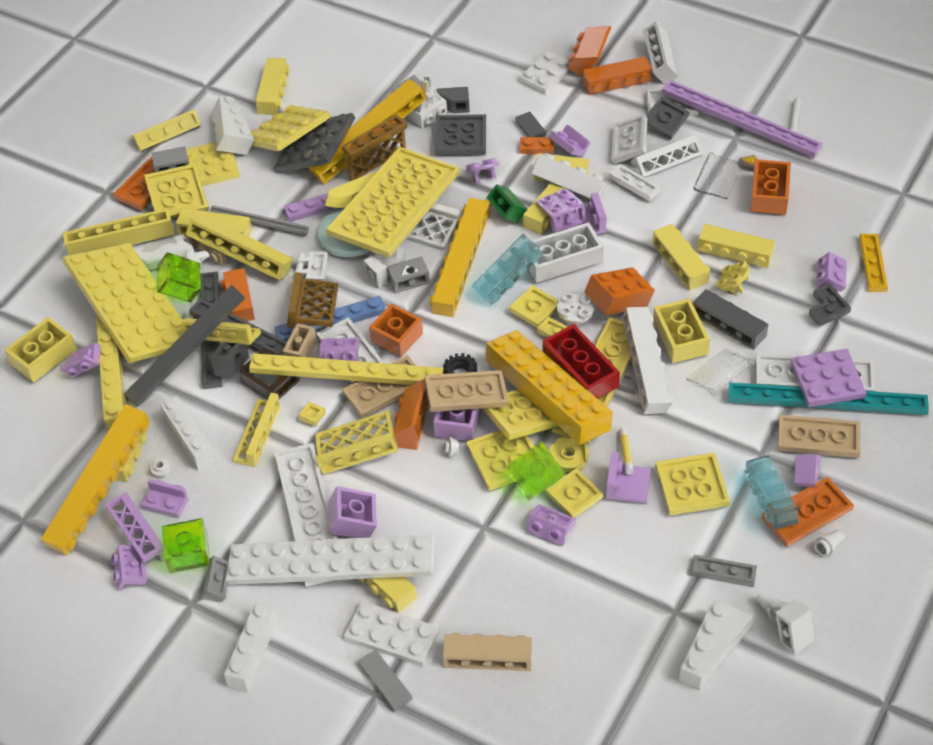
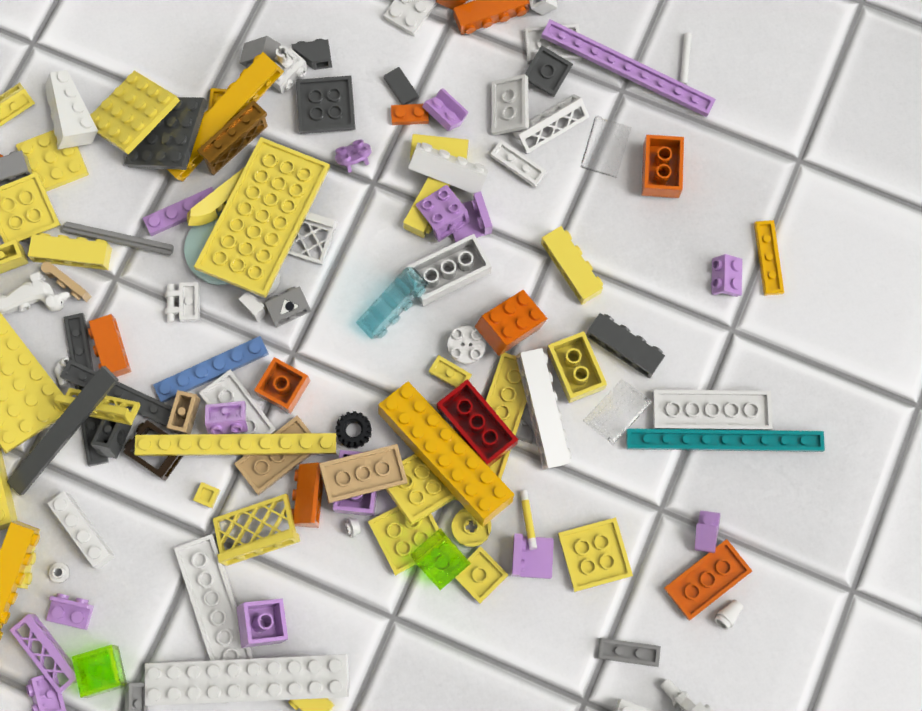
camera: 10 degrees left, 25 degrees up
(178, 277) = (41, 332): clear neon green brick -> none
(239, 246) = (101, 286): light yellow brick -> none
(259, 434) = (156, 519): light yellow fence -> none
(272, 86) = (107, 44): light yellow brick -> none
(299, 300) = (173, 358): pearl gold fence -> none
(460, 257) = (341, 278): yellow brick -> none
(506, 203) = (384, 205): green brick -> none
(534, 306) = (424, 340): light yellow plate -> none
(549, 524) = (458, 612): lavender bracket -> none
(733, 277) = (627, 291): light yellow plate -> none
(736, 245) = (628, 247): light yellow brick -> none
(748, 161) = (640, 127): tile -> none
(771, 492) = (673, 566): clear light blue brick -> none
(819, 436) = (717, 487): tan plate -> none
(828, 377) = (725, 418): lavender plate -> none
(831, 305) = (729, 320): dark grey plate -> none

